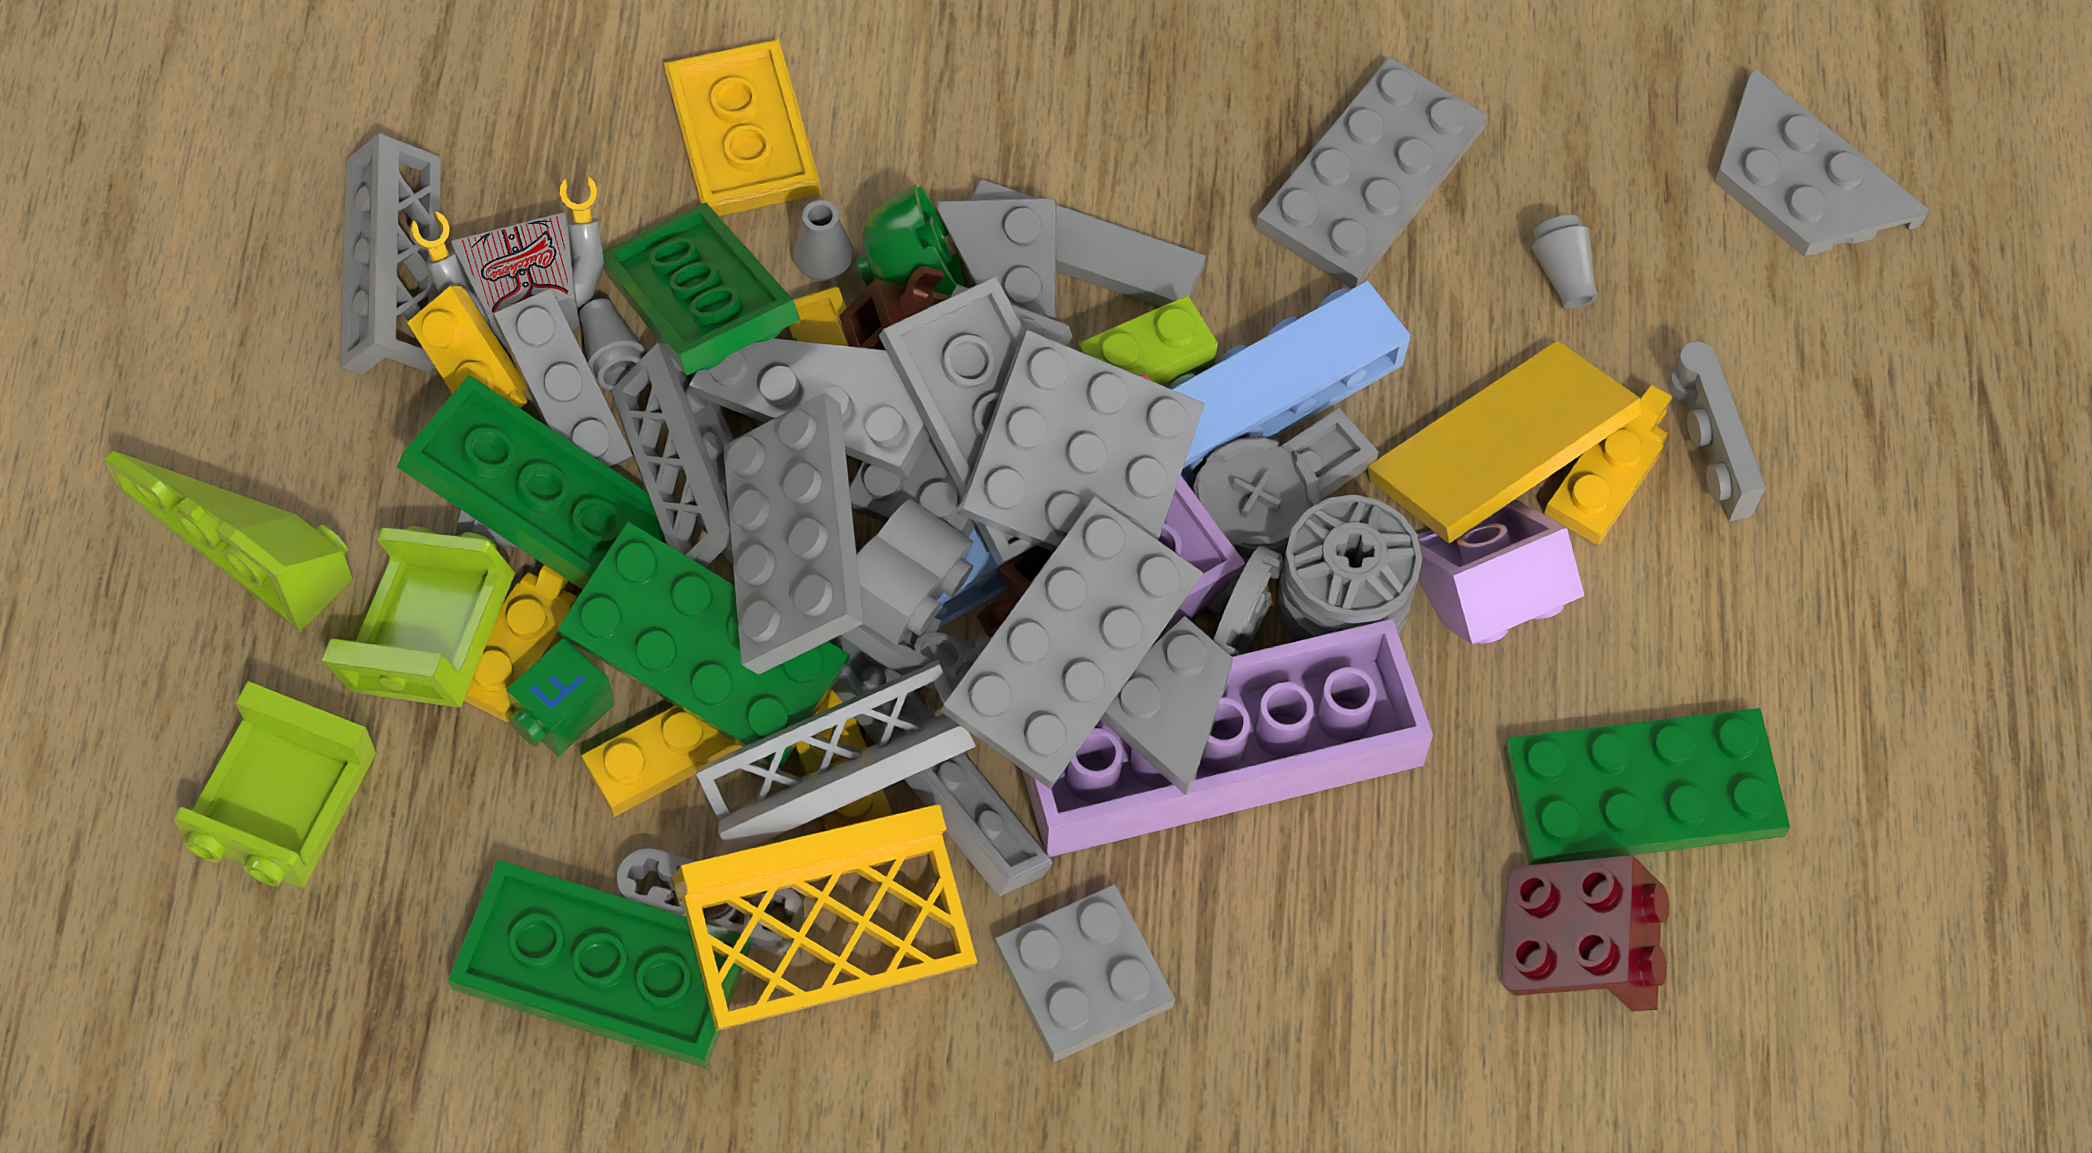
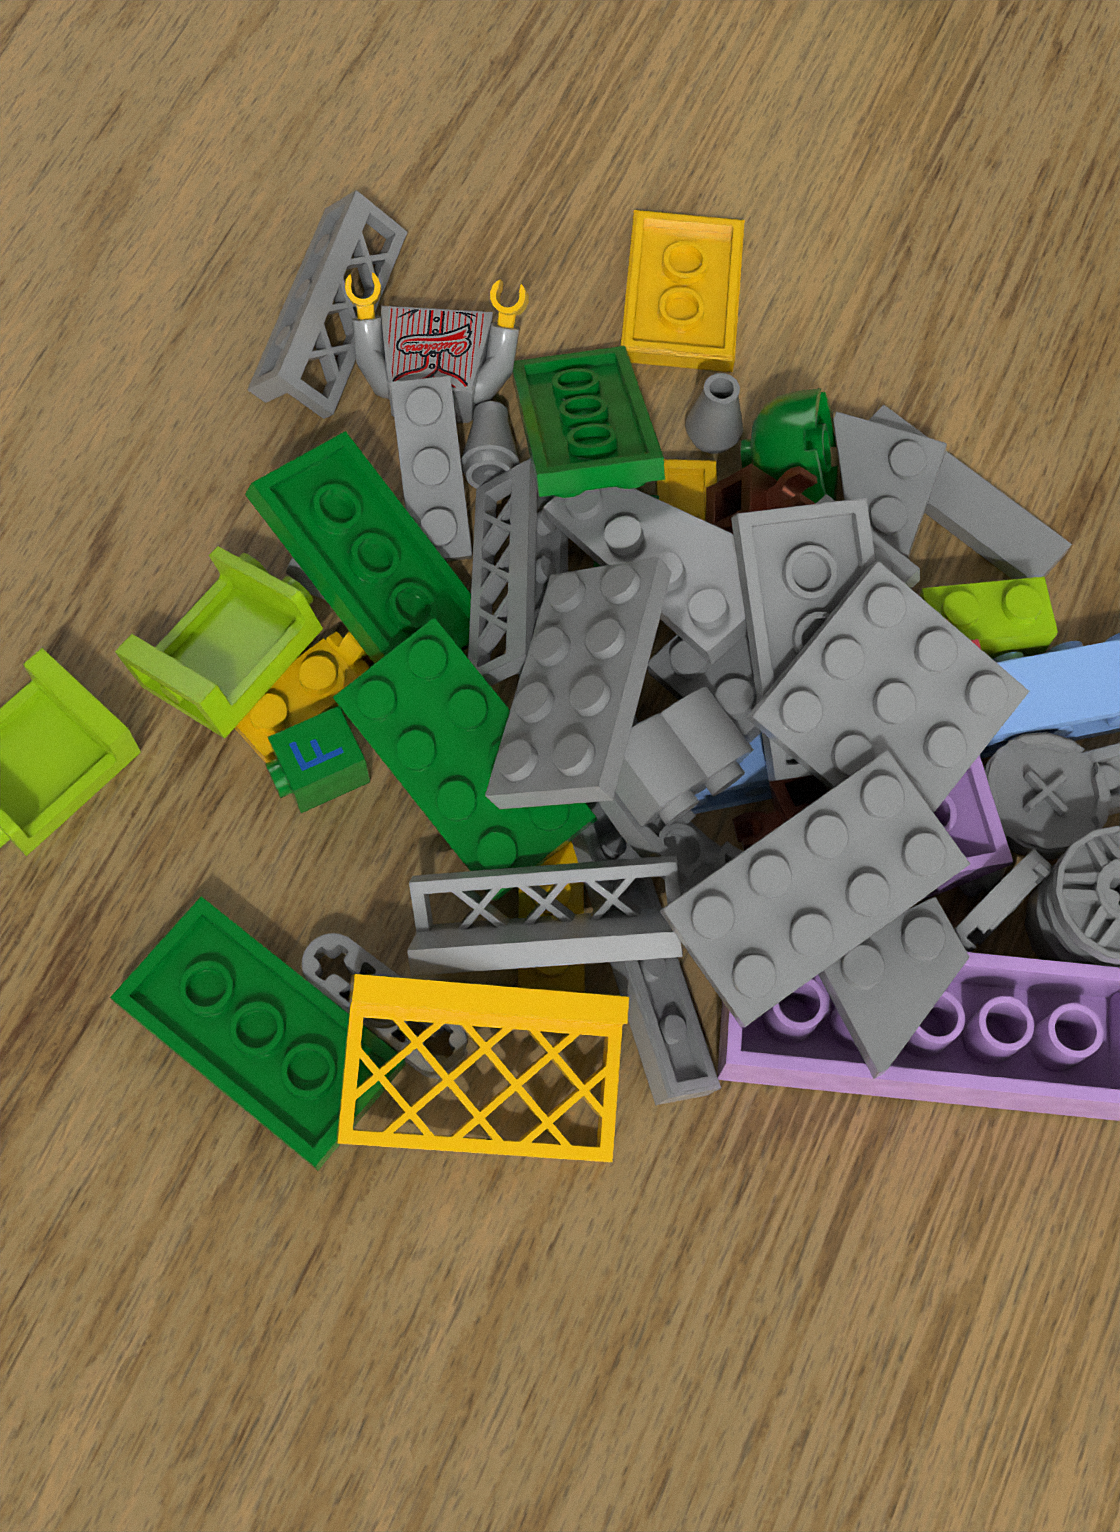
camera: 20 degrees right, 5 degrees up
(254, 543) = (112, 527): lime wedge -> none
(464, 345) = (359, 405): yellow hinge -> none
(653, 758) = (383, 847): yellow plate -> none
(1084, 973) = (712, 1211): light grey plate -> none

